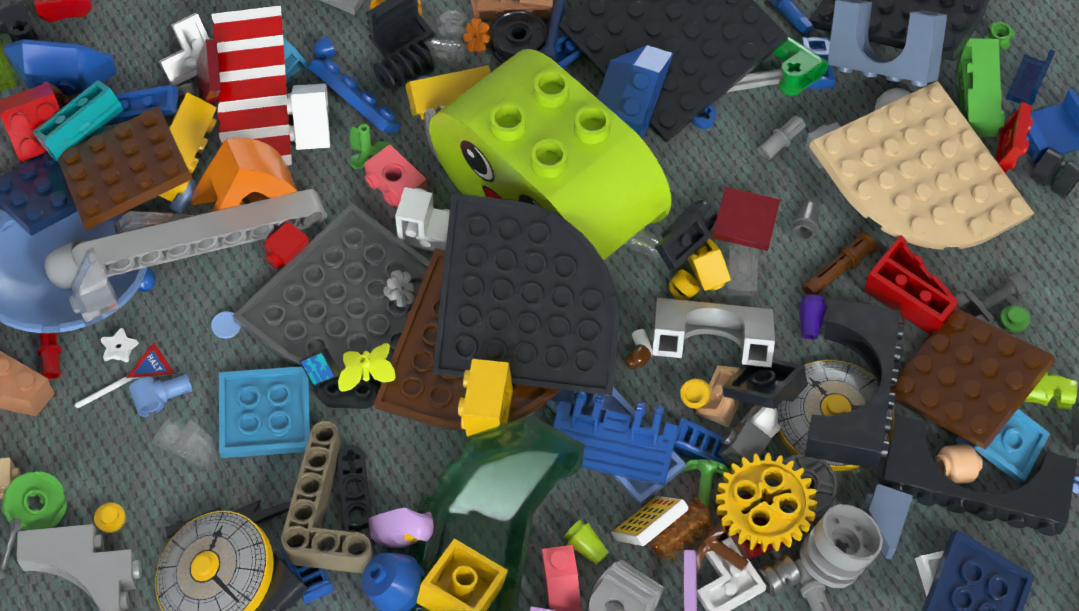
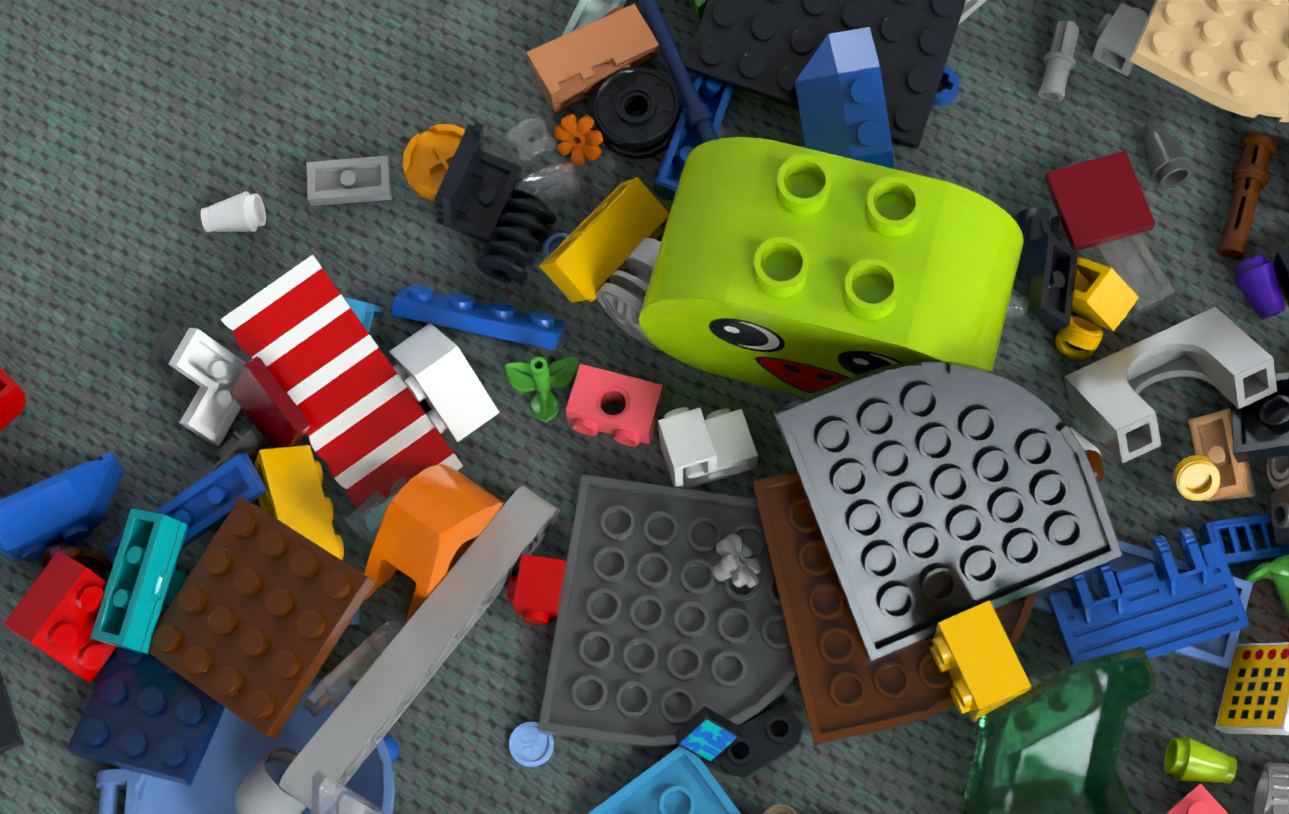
camera: 25 degrees left, 10 degrees up
(324, 49) = (388, 272): blue hinge -> none
(362, 364) = (765, 695): neon yellow piece -> none

